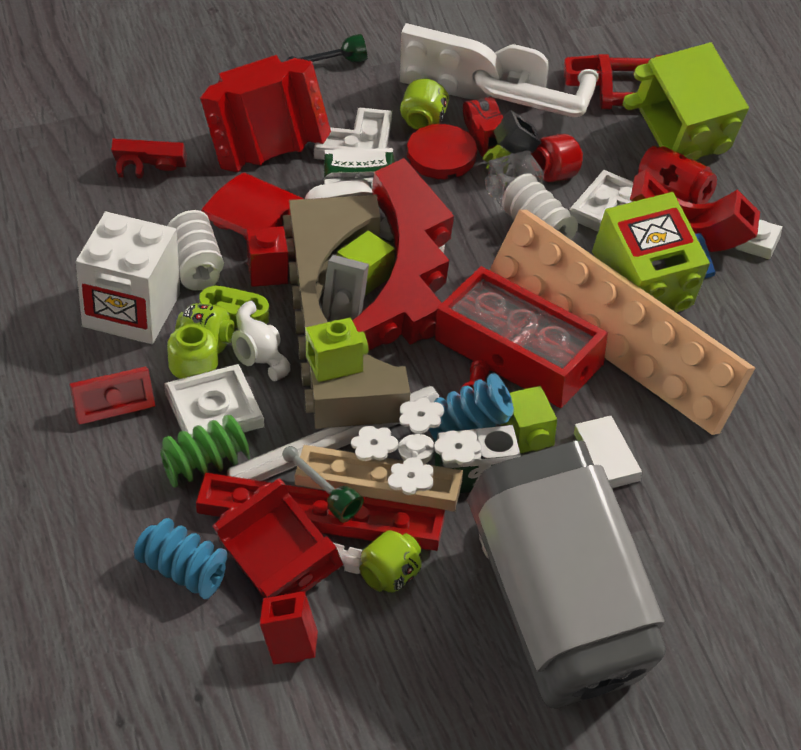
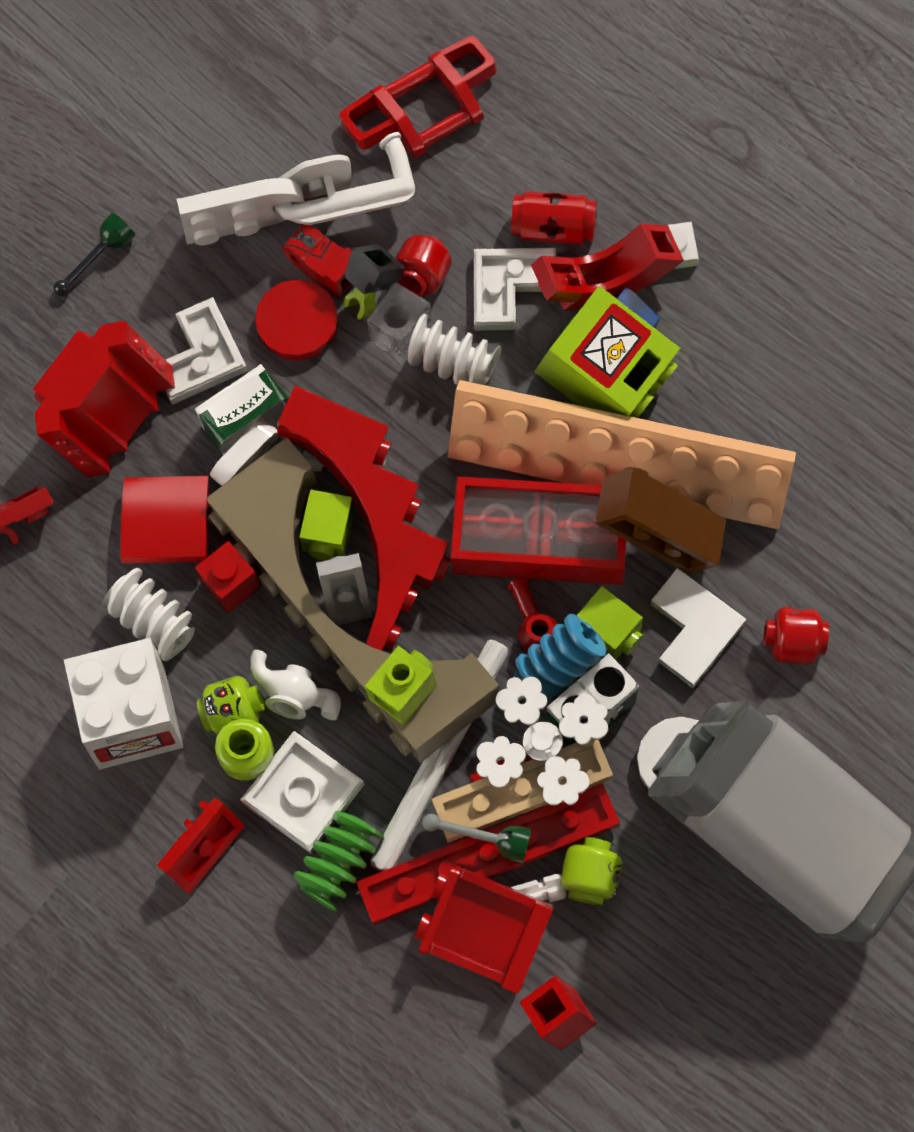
camera: 25 degrees left, 25 degrees up
(182, 557) = (404, 992): dark azure piece -> none
(233, 299) = (231, 647): lime beam -> none
(424, 103) = (241, 270): lime head -> none
(616, 363) = (660, 520): none -> reddish brown brick
(674, 499) = (796, 635): none -> red head
(689, 101) = (521, 124): lime container -> none

